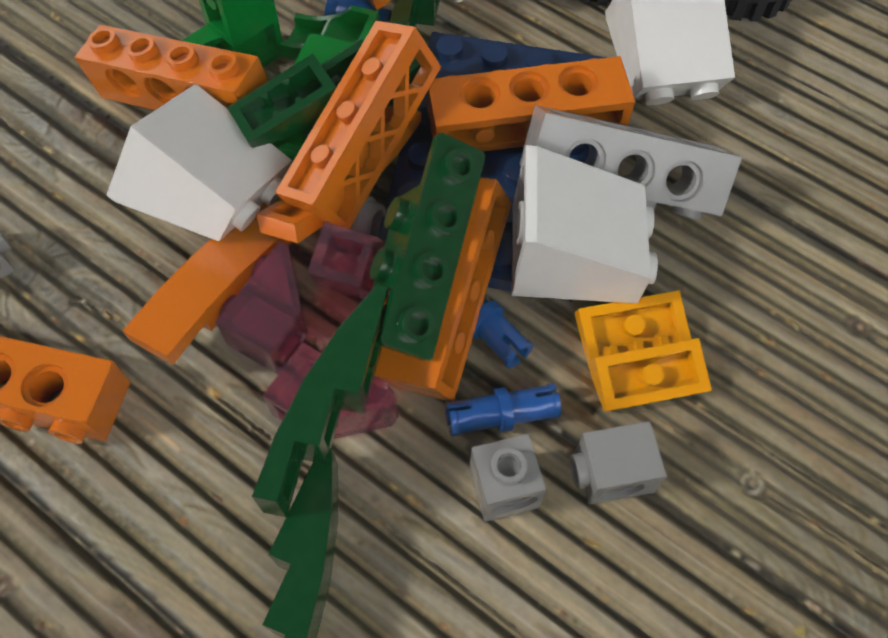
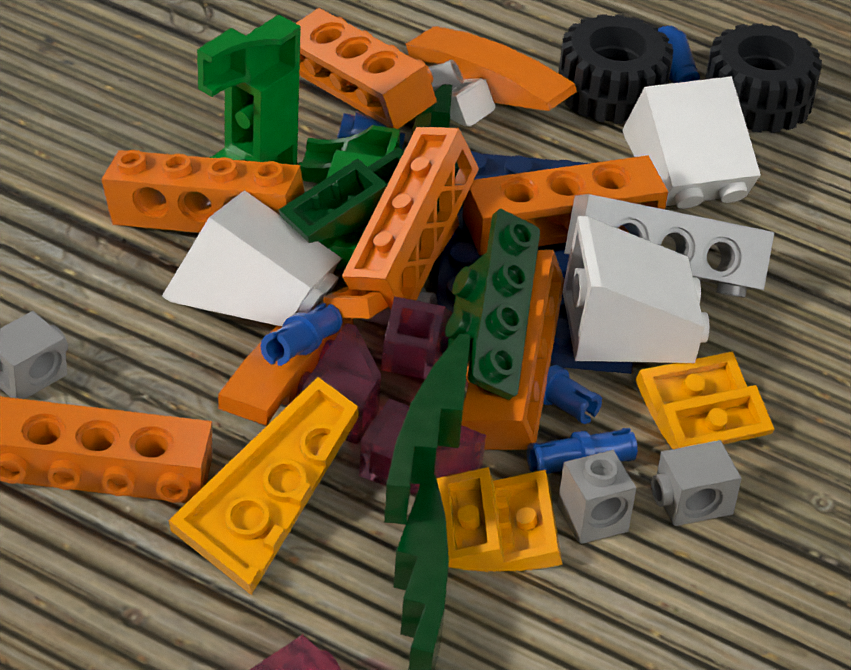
camera: 10 degrees left, 20 degrees down
(150, 451) = (261, 492): none -> light orange wing
(221, 261) = (301, 334): none -> blue pin
(400, 493) = (500, 522): none -> light orange slope

